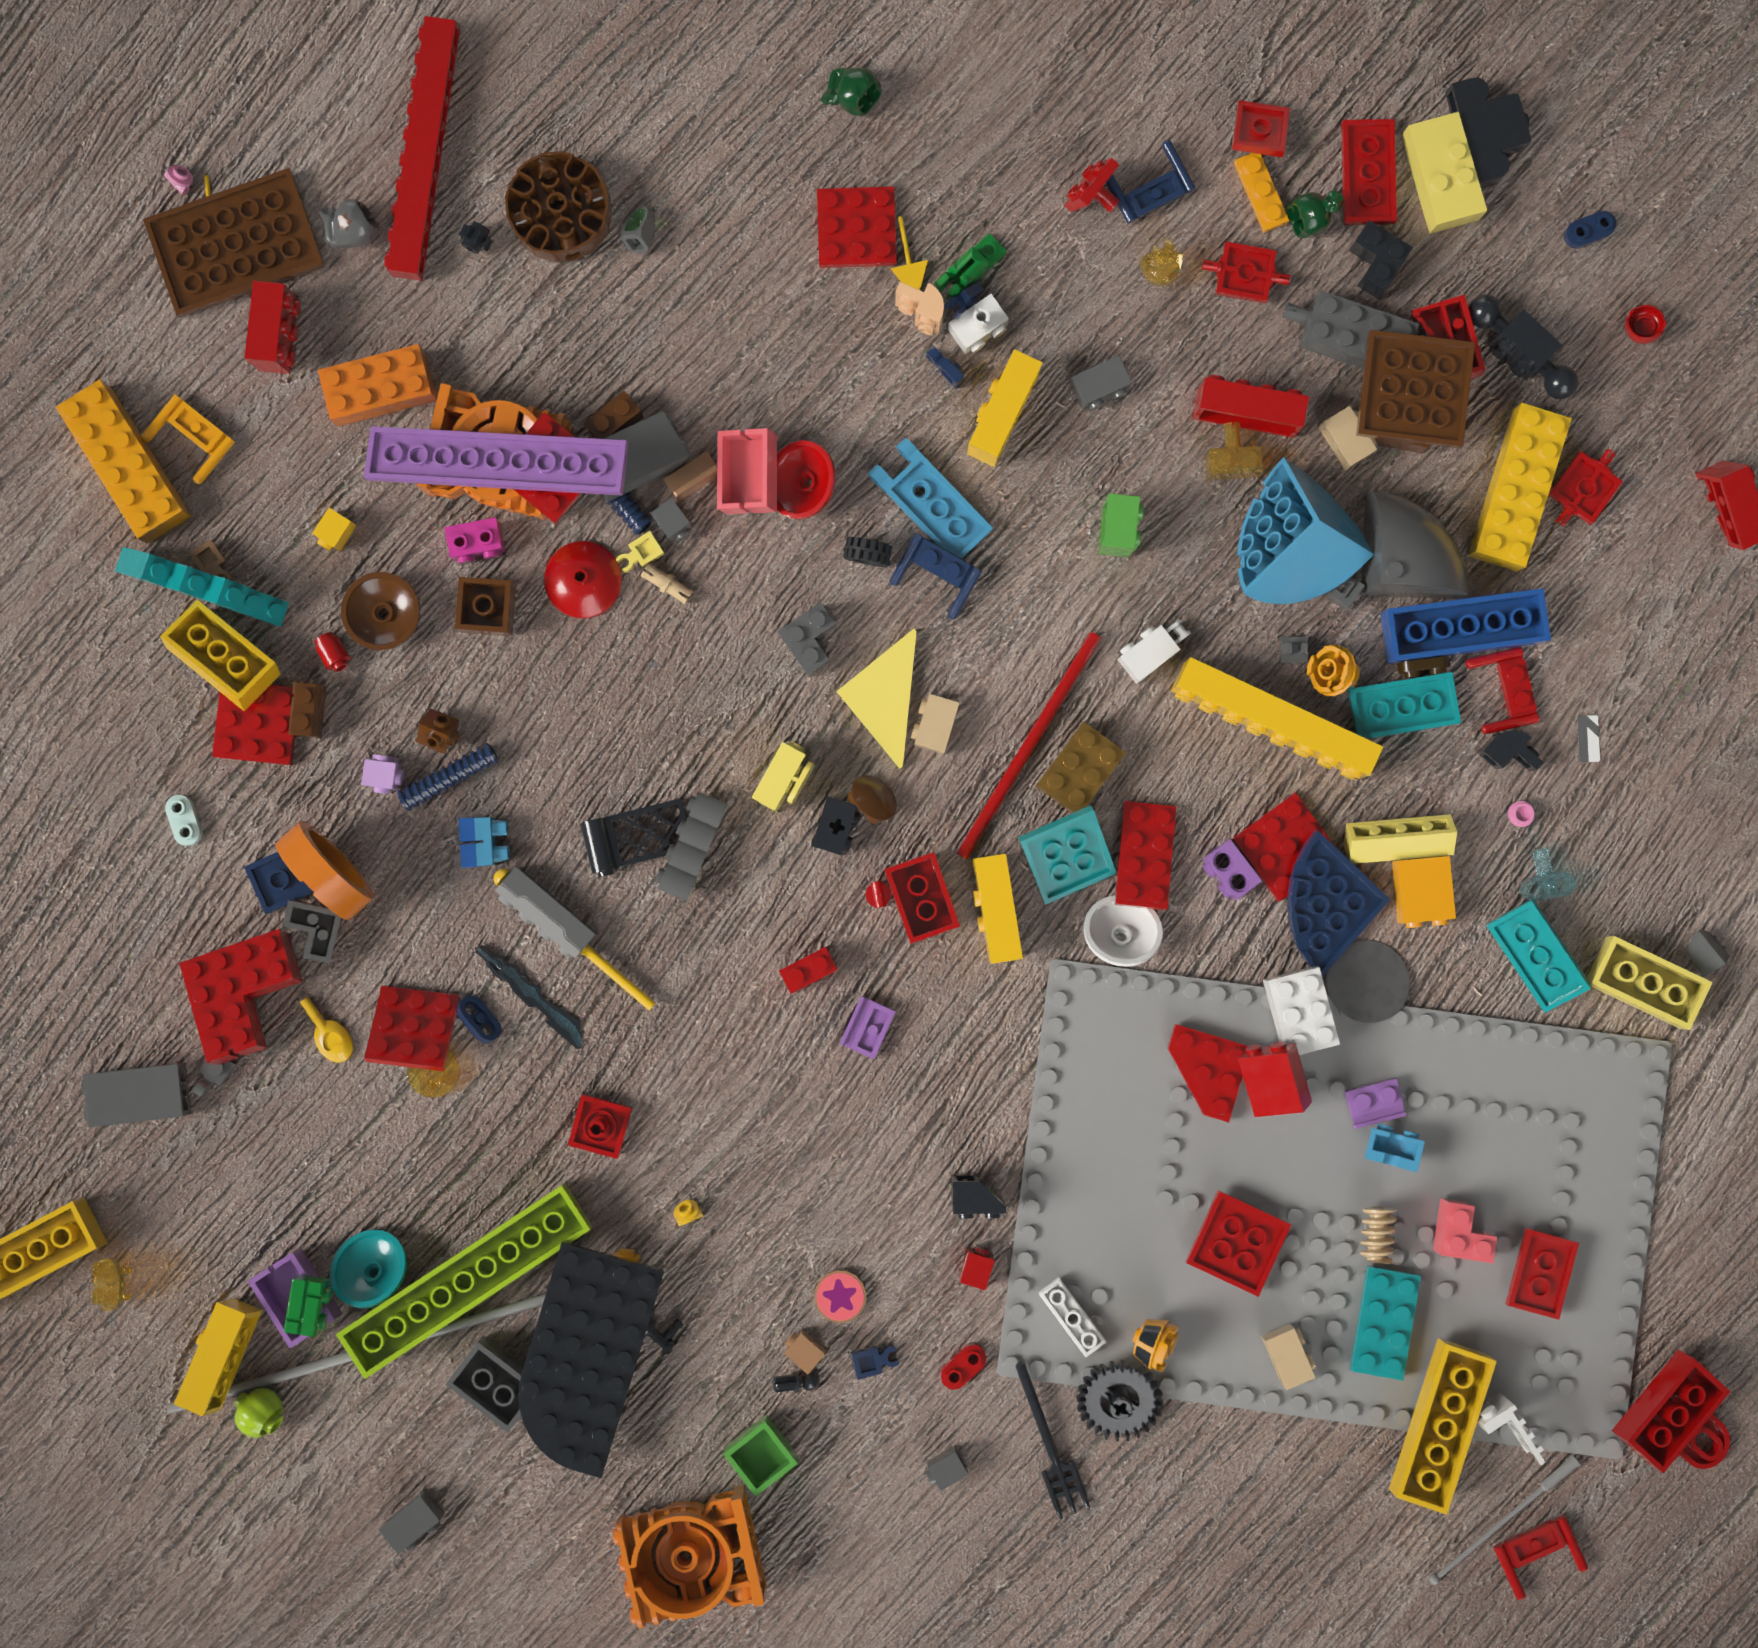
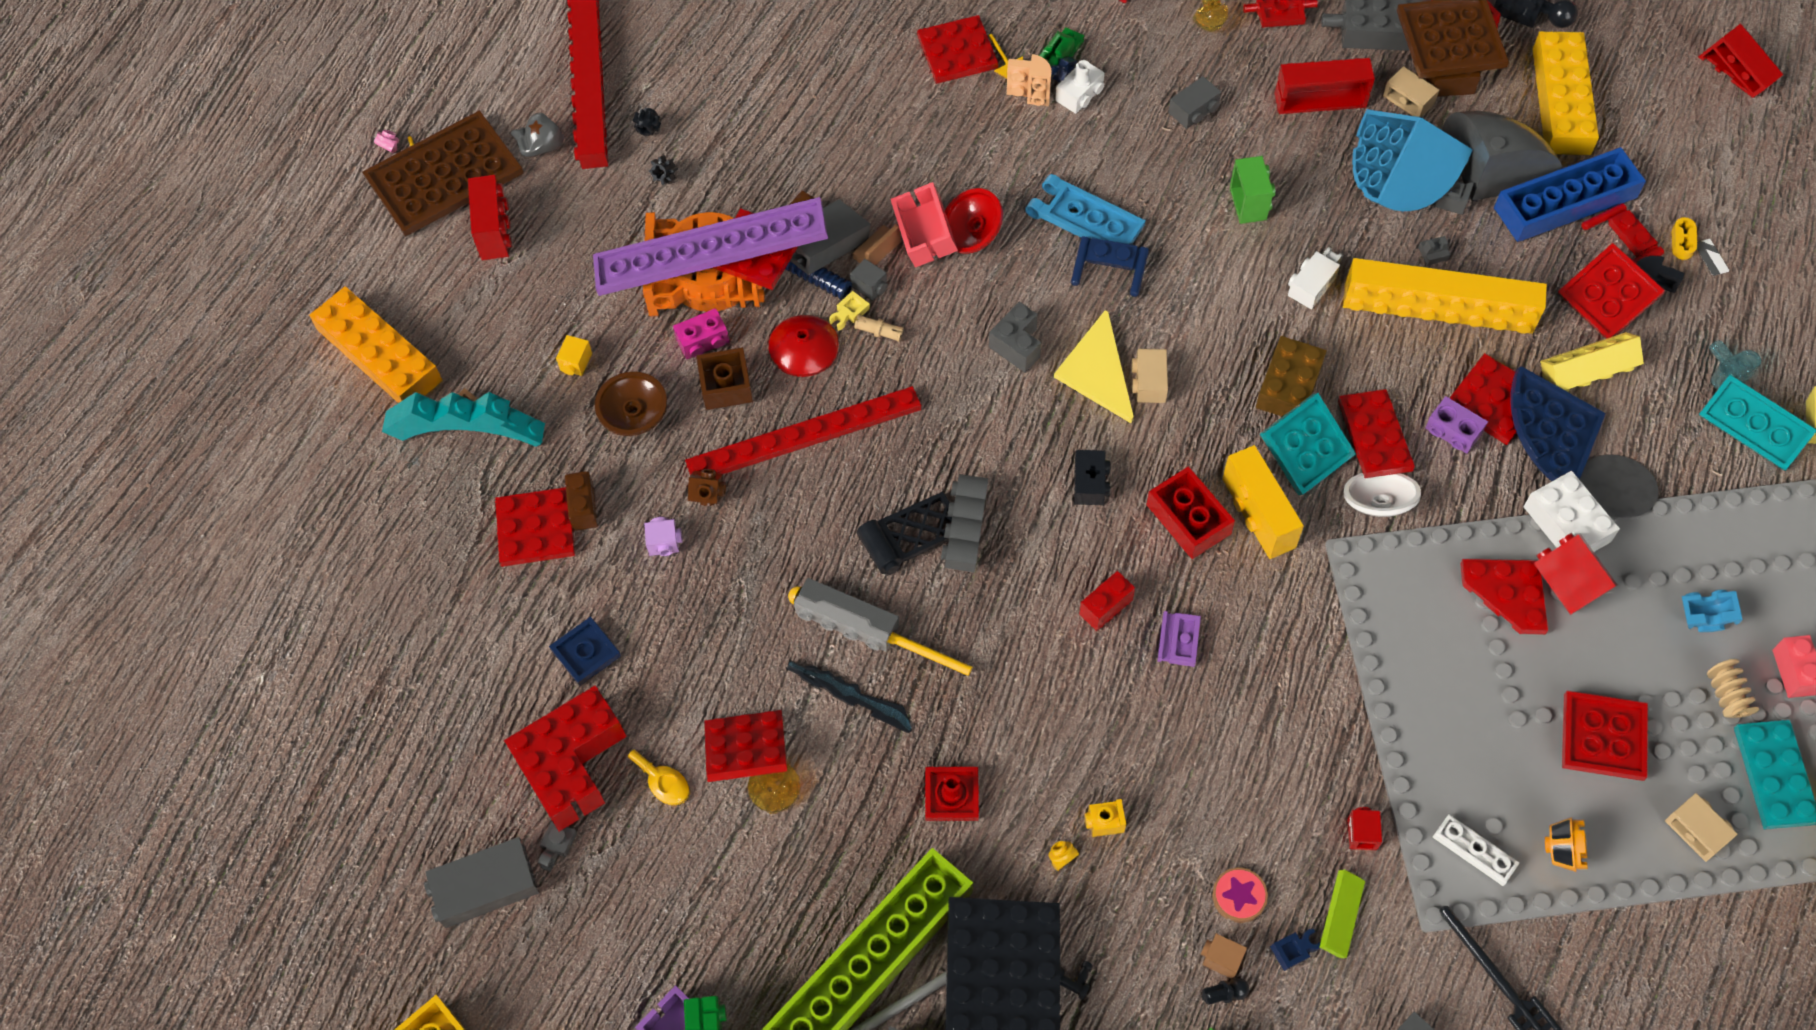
camera: 15 degrees left, 25 degrees down
(184, 819) = (480, 623): light aqua plate -> none
(196, 429) = (436, 311): light orange plate -> none
(220, 655) = (492, 471): yellow brick -> none
(318, 922) = (632, 673): dark grey brick -> none
(324, 870) = (631, 612): orange brick -> none
(332, 652) = (593, 450): red brick -> none
(358, 1261) = (757, 987): teal dish -> none
(377, 385) = (571, 245): orange brick -> none
(447, 776) = (723, 525): dark blue piece -> none
(479, 311) = (663, 170): none -> black gear
(480, 1019) = (807, 725): dark blue plate -> none
(482, 853) = (766, 569): dark azure hips -> none
(533, 202) = (711, 84): reddish brown brick -> none
(557, 690) = (807, 433): none -> red plate
(639, 230) = (781, 88): dark grey rock -> none
(746, 1185) = (1113, 825): none -> yellow brick
(784, 777) = (1031, 445): light yellow brick -> none
(867, 552) = (1045, 259): black tyre -> none
(873, 798) = (1117, 443): reddish brown dish -> none
(878, 894) = (1148, 524): red plate -> none
(927, 1341) = (1342, 914): none -> lime tile
(950, 370) = (1066, 121): dark blue plate -> none
(962, 1366) = (1388, 930): red plate -> none
(973, 1196) = (1338, 755): black slope -> none
(1002, 411) = (1122, 132): yellow brick -> none
(1028, 745) = (1237, 378): red piece -> none
(1124, 1412) = (1582, 921): black gear -> none
(1233, 459) = (1324, 127): clear yellow brick -> none
(1333, 670) = (1476, 250): light orange cone -> none
(1375, 1103) = (1672, 581): medium lavender plate -> none
(1404, 706) = (1548, 263): teal plate -> none
(1413, 668) = (1548, 232): dark brown plate -> none
(1423, 891) = (1631, 399): light orange brick -> none
(1455, 762) = (1611, 292): none -> red plate
(1521, 814) = (1684, 322): bright pink plate -> none
(1573, 713) = (1679, 238): none -> yellow beam
(1585, 487) = (1617, 82): red plate -> none

